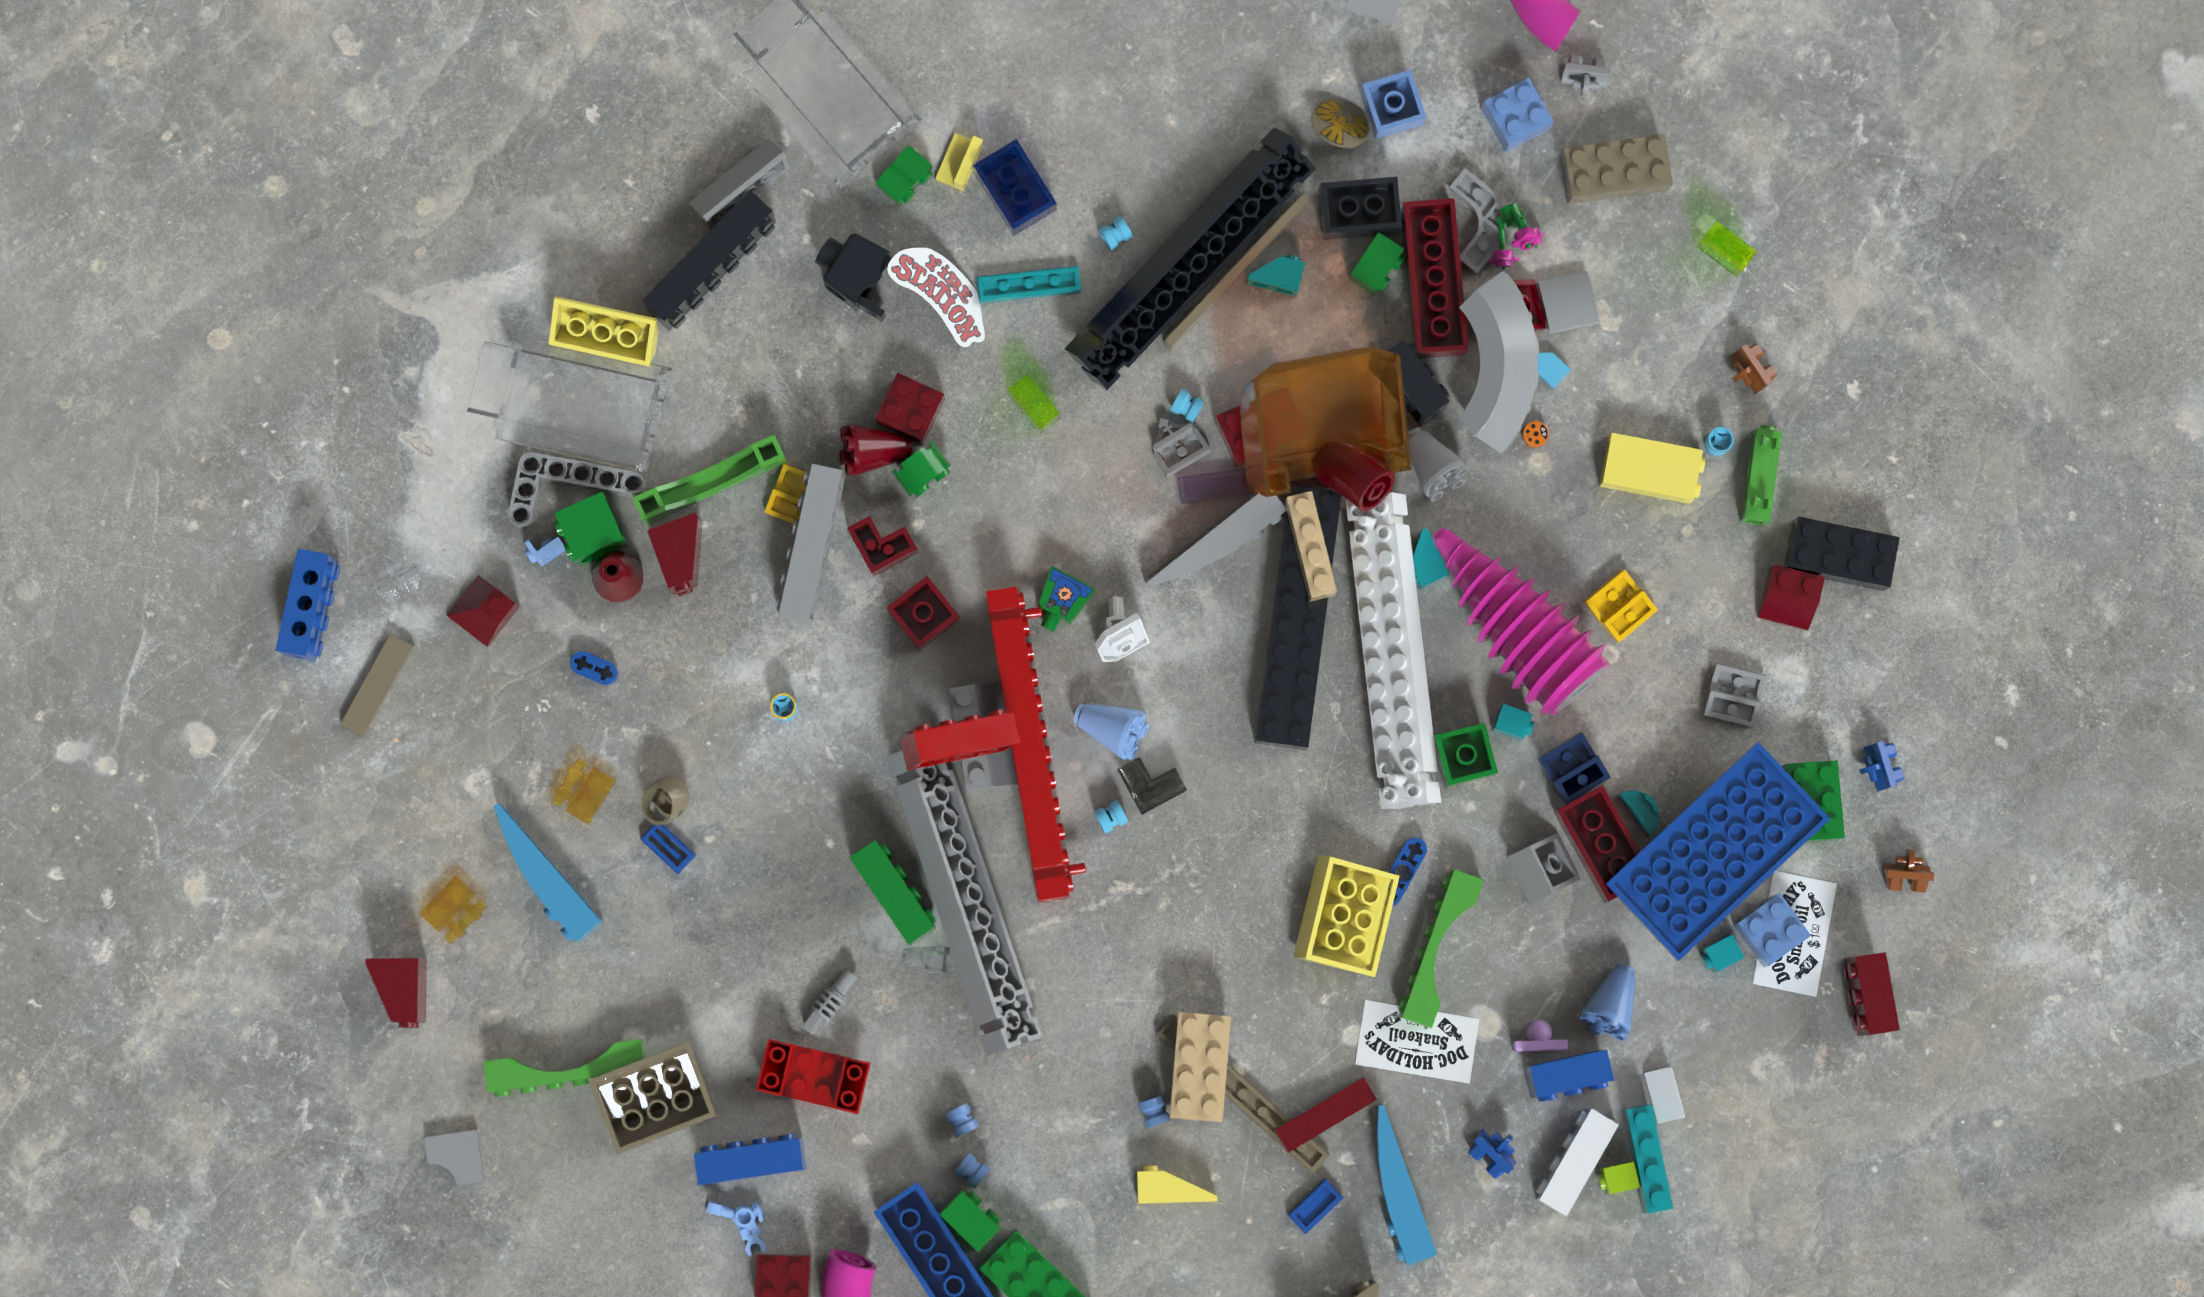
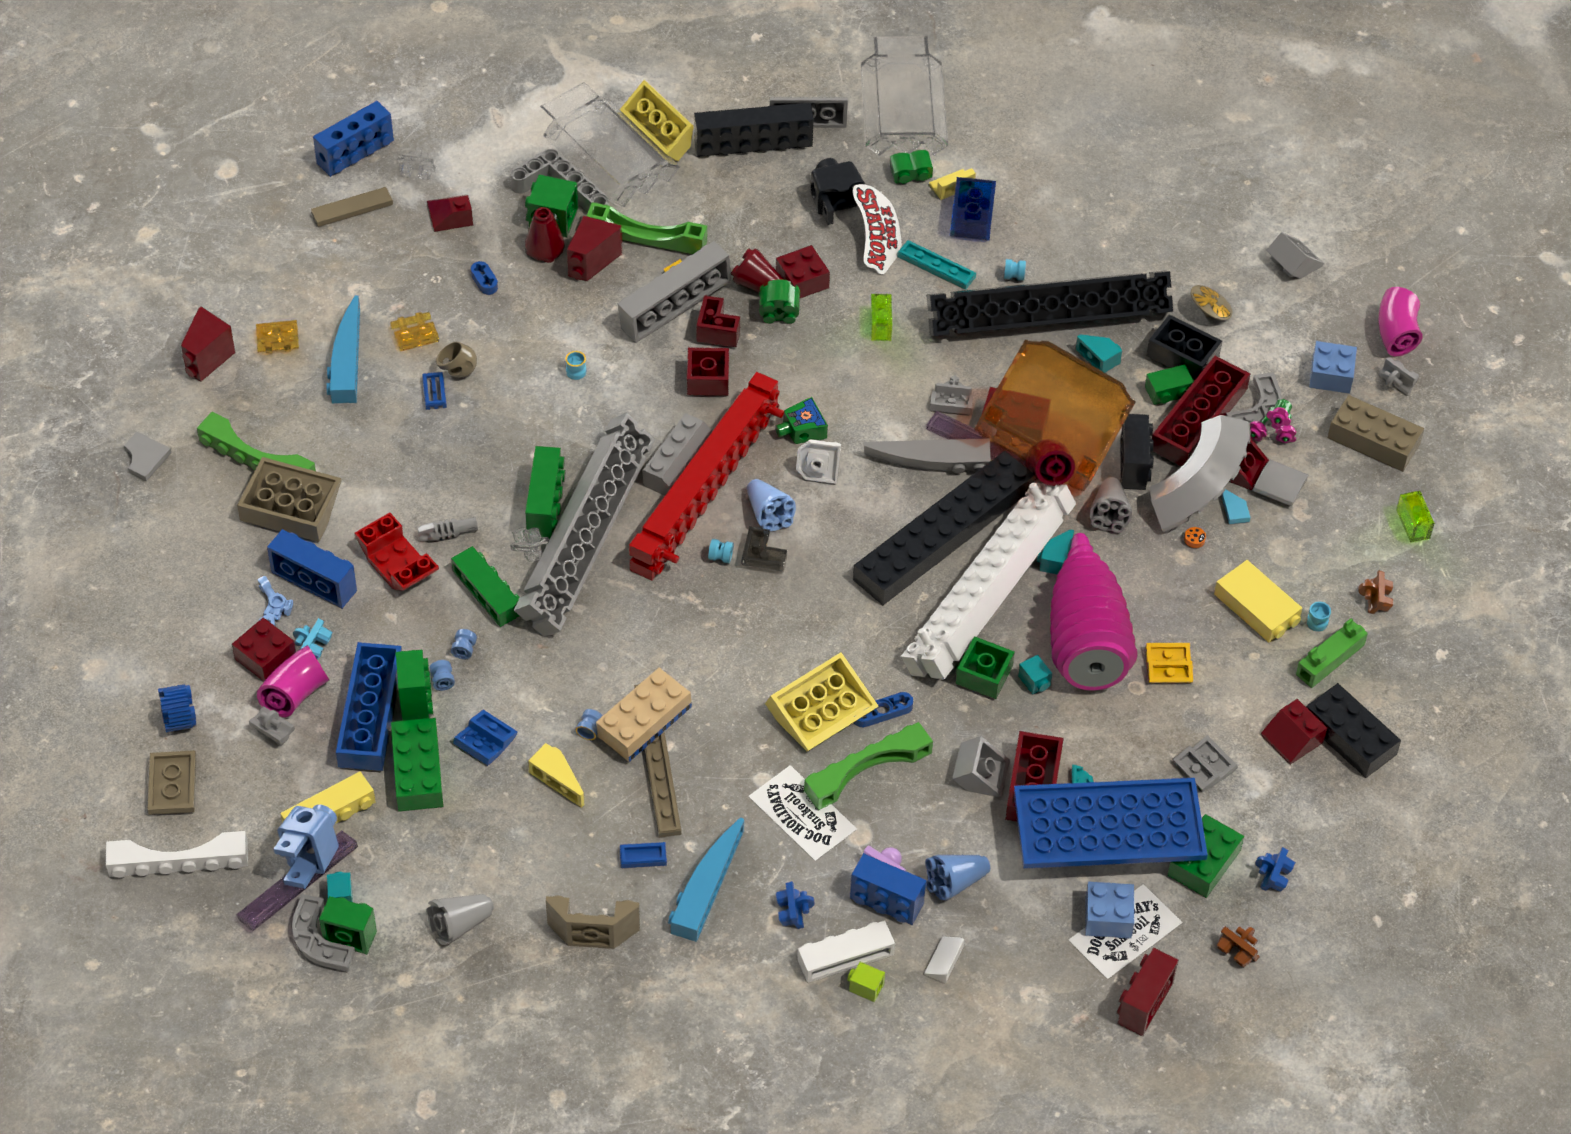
camera: 45 degrees right, 30 degrees down
(549, 550) = (514, 205): light blue bracket -> none
(814, 1221) = (317, 633): none -> medium azure hips
(926, 1038) = (486, 585): none -> green brick
(959, 740) = (663, 424): red brick -> none
(1067, 1201) = (485, 737): none -> blue slope
(1187, 405) = (977, 378): medium azure wheel -> none
(1236, 271) = (1068, 334): dark tan tile -> none
(1310, 546) = (986, 479): tan brick -> none
(1325, 1115) = (699, 804): dark red tile -> none
(1393, 104) = (1254, 311): medium blue brick -> none
(1573, 768) = (1054, 720): dark blue brick -> none
(1648, 1158) = (896, 983): teal brick -> none
(1721, 954) = (1060, 901): teal brick -> none

